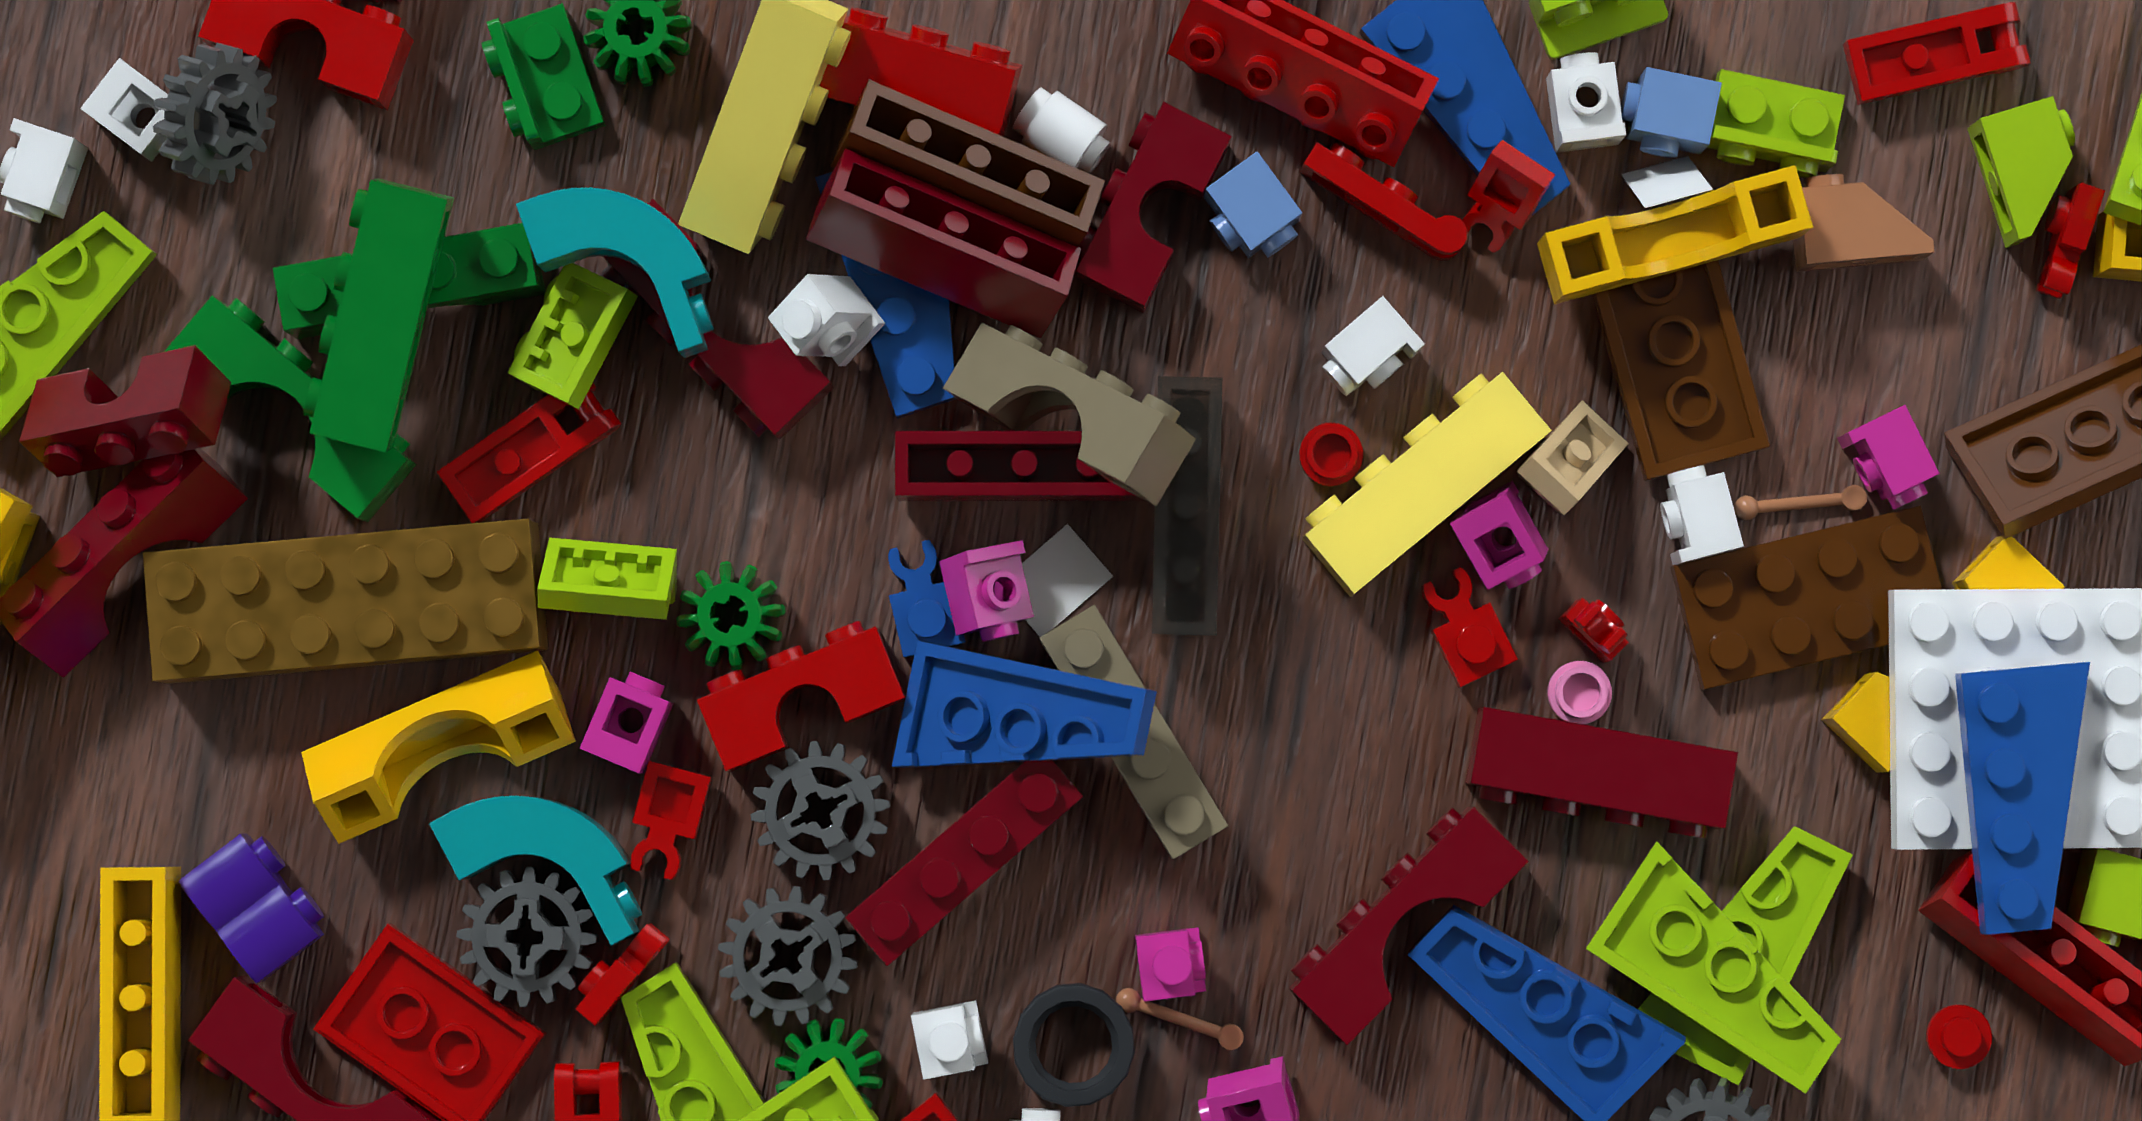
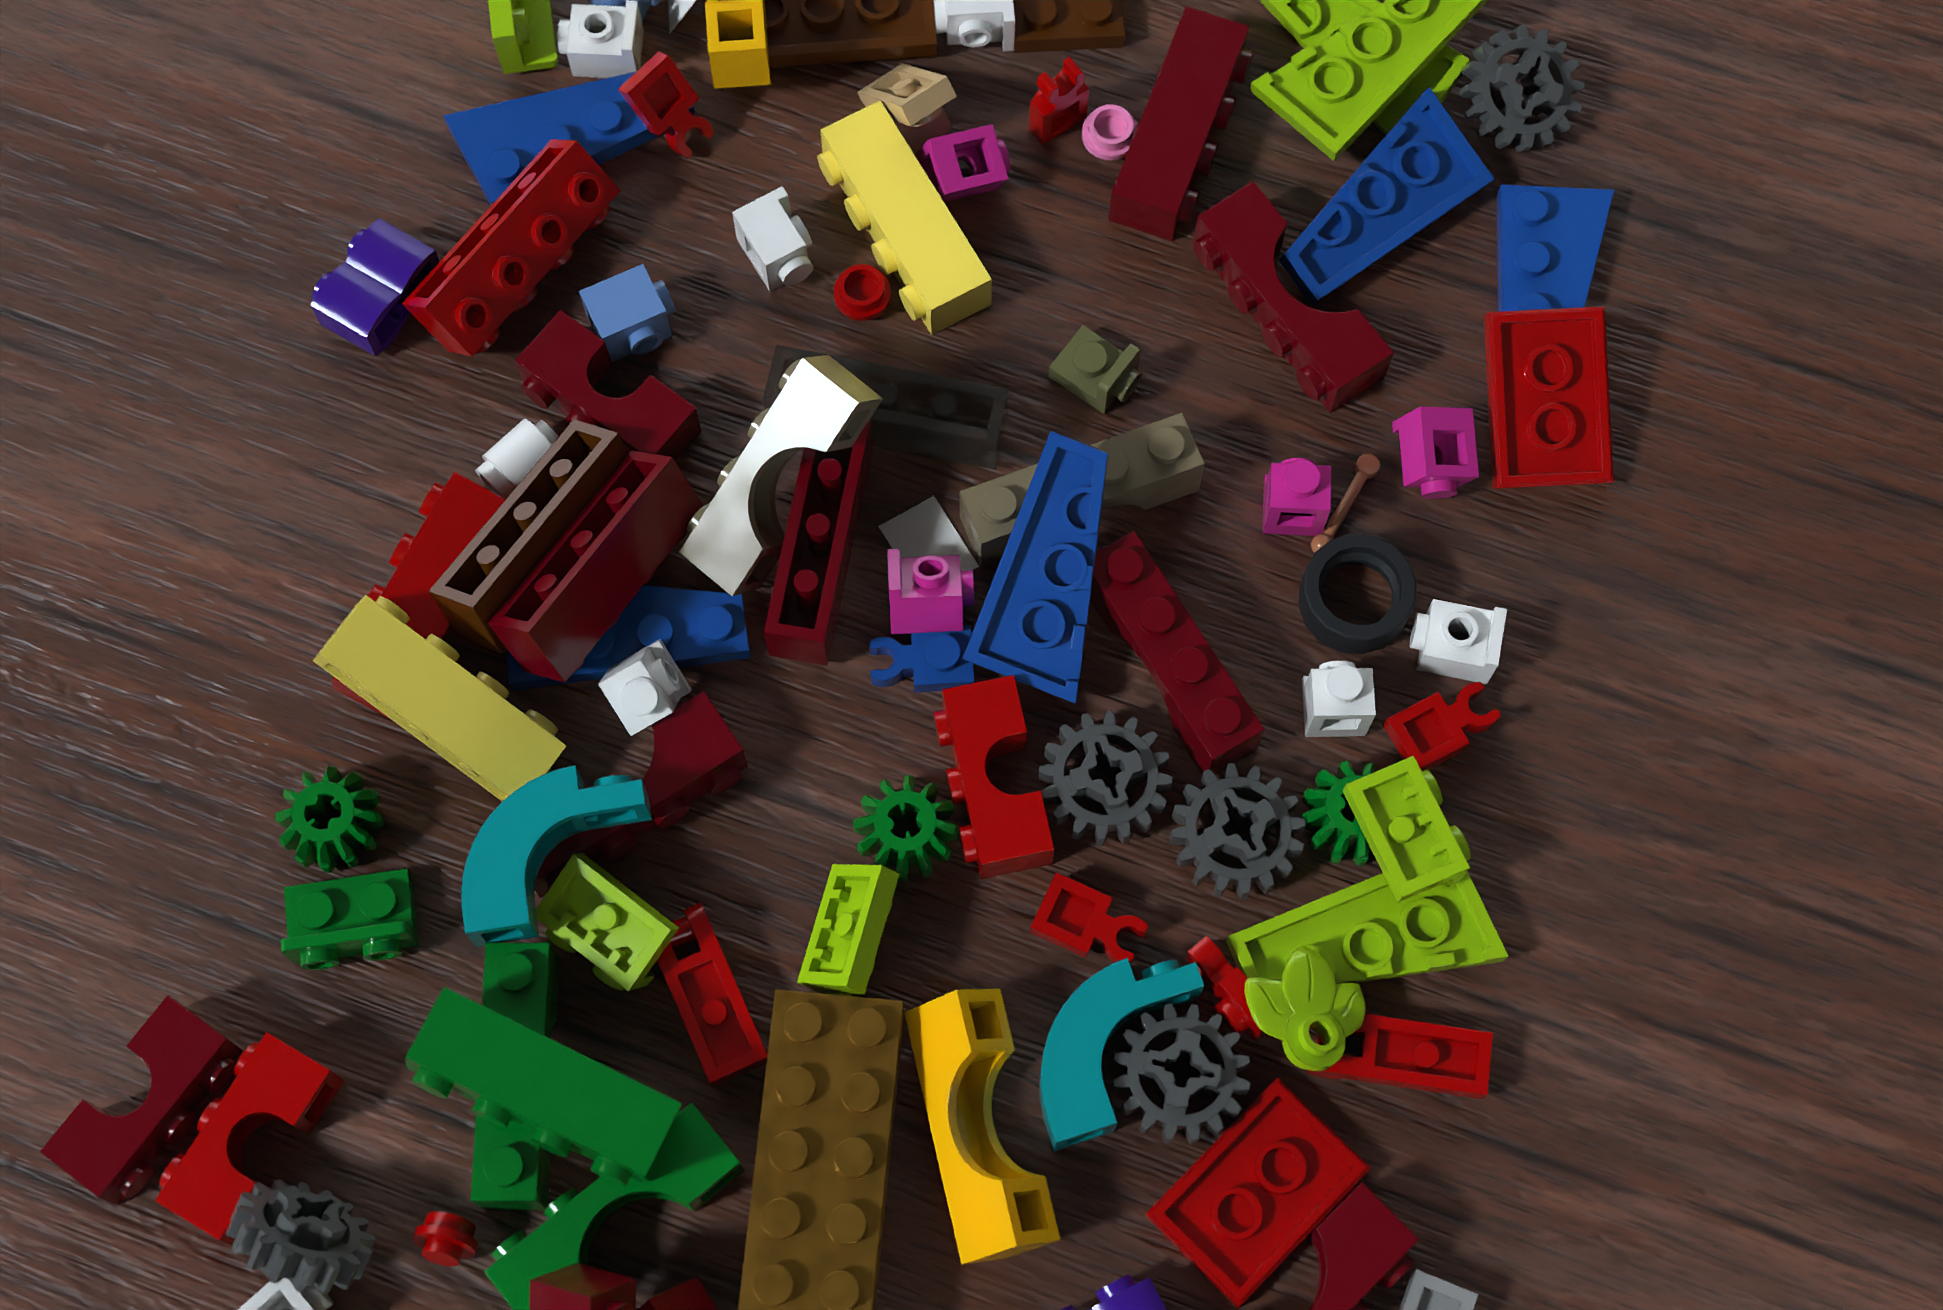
camera: 80 degrees left, 15 degrees down
(244, 249) = (446, 1238): none -> red plate
(608, 738) = (985, 916): dark pink brick -> none
(614, 1048) = (1304, 1002): none -> lime plate
(1286, 725) = (1097, 370): none -> olive bracket
(1386, 203) = (649, 208): red plate -> none
(1471, 639) = (1045, 210): red plate -> none

